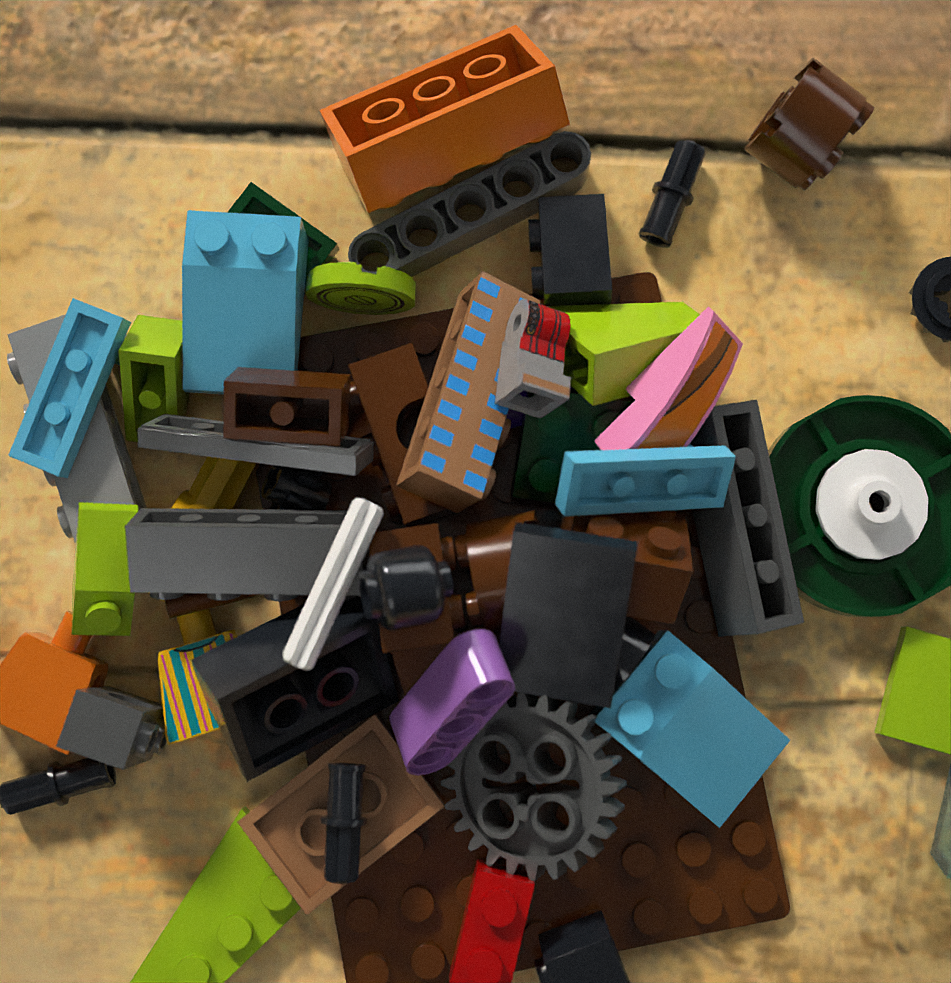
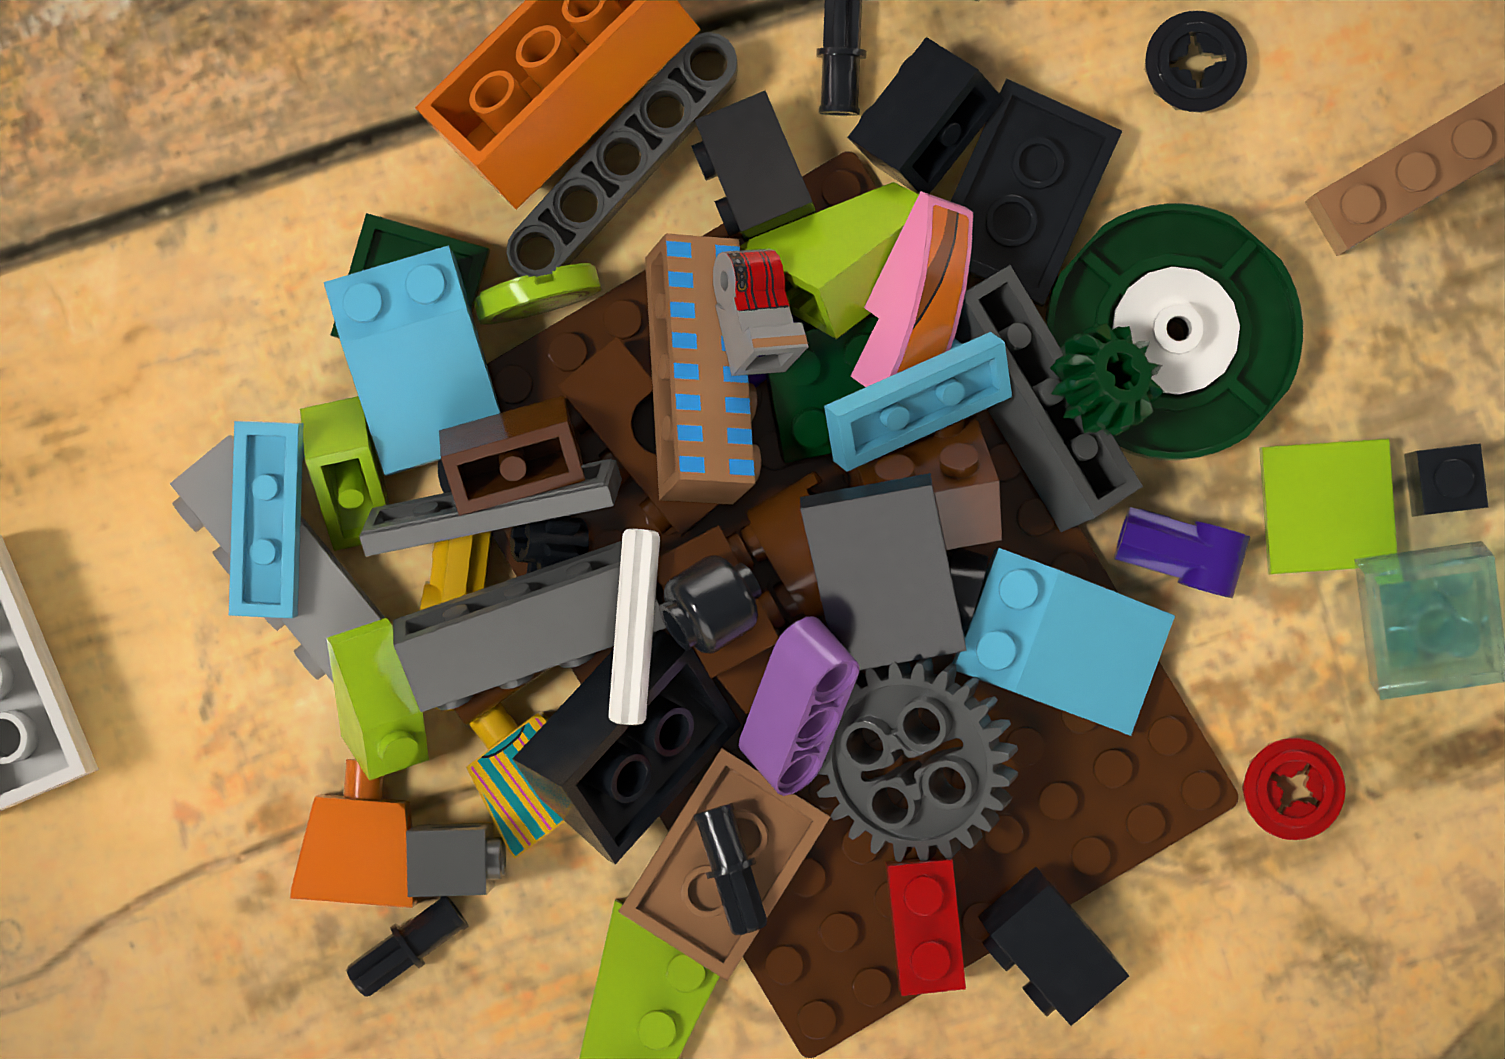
camera: 15 degrees left, 5 degrees up
(726, 260) = (925, 117): none -> black brick
(793, 346) = (1031, 185): none -> black plate
(807, 521) = (1106, 379): none -> dark green gear
(824, 695) = (1197, 554): none -> dark purple piece
(865, 922) = (1322, 780): none -> red gear

